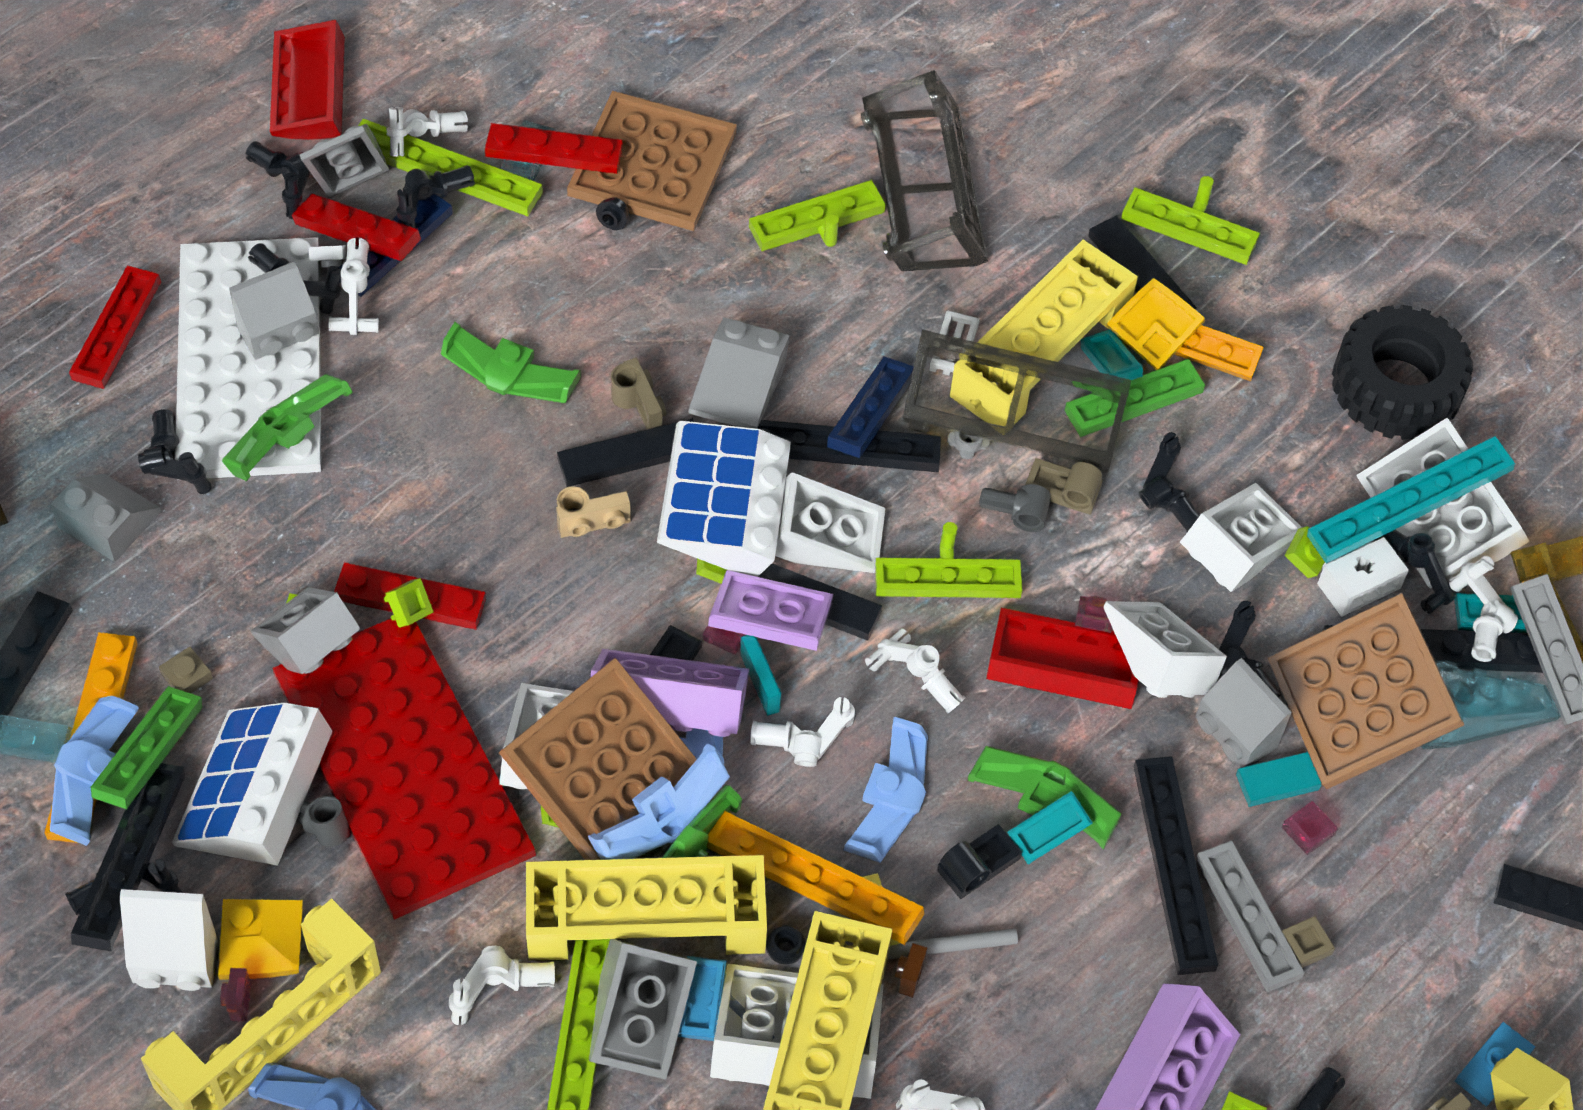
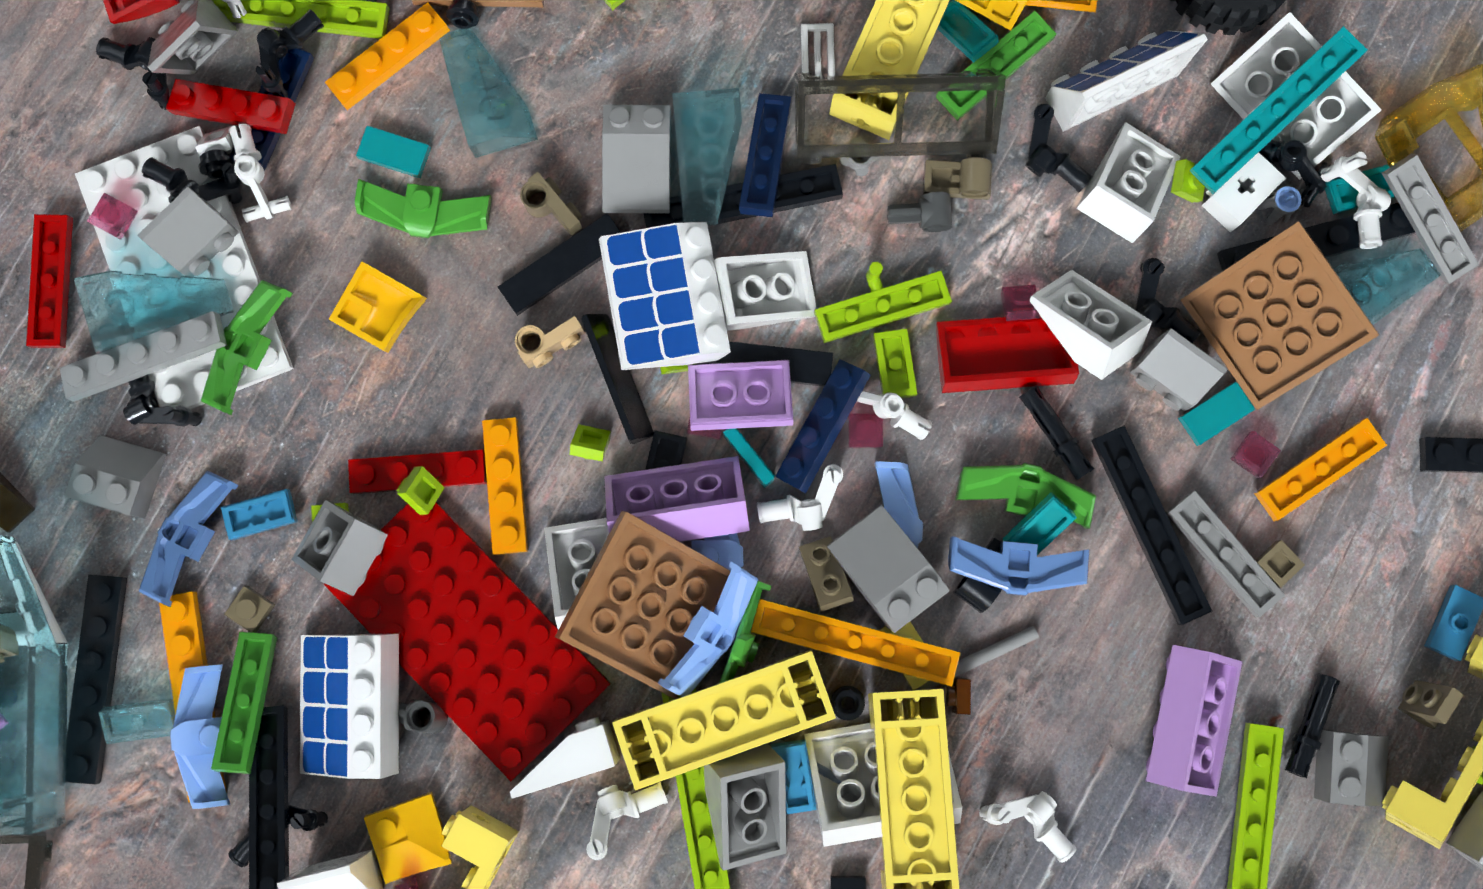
camera: 15 degrees left, 25 degrees up
(149, 582) = (183, 536): none -> medium blue plate
(180, 408) = (143, 356): none -> light grey plate
(193, 365) = (134, 306): none -> clear light blue wedge
(203, 285) = (112, 216): none -> clear pink plate
(233, 586) = (259, 514): none -> dark azure plate
(318, 264) = (212, 163): none -> black plate
(428, 435) = (376, 307): none -> yellow plate
(467, 898) = (579, 754): none -> white slope
(494, 635) = (505, 486): none -> light orange plate
(498, 311) = (393, 152): none -> teal tile
(524, 229) = (387, 56): none -> light orange plate
(598, 616) = (590, 442): none -> lime plate
(607, 291) = (486, 101): none -> clear light blue wedge
(649, 568) = (618, 381): none -> black slope
(804, 810) = (825, 575): none -> dark tan plate
(813, 378) = (706, 142): none -> clear light blue wedge
(847, 666) = (823, 425): none -> dark blue plate
(872, 814) = (888, 569): none -> light grey slope
(892, 689) = (865, 431): none -> clear pink plate
(945, 630) = (895, 363): none -> lime plate
(1014, 849) = (1017, 566): none -> medium blue plate
(1102, 759) = (1053, 428): none -> black pin
(1260, 437) = (1122, 76): none -> white slope
(1378, 862) = (1320, 469): none -> light orange plate
(1404, 585) = (1284, 201): none -> piece

